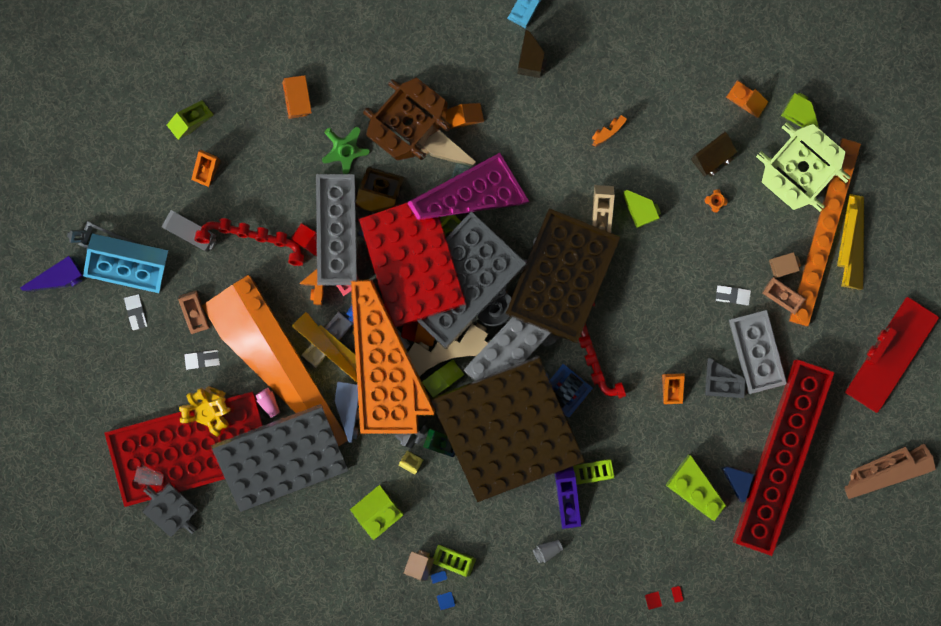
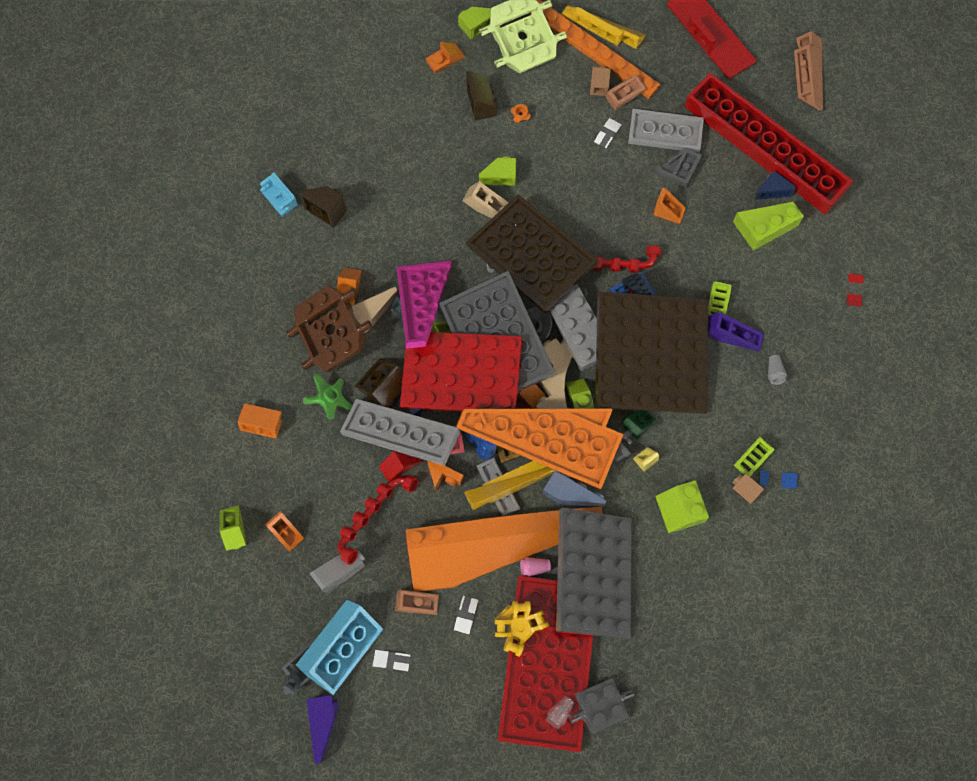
camera: 65 degrees left, 15 degrees down
(605, 134) = (420, 171): orange slope -> none

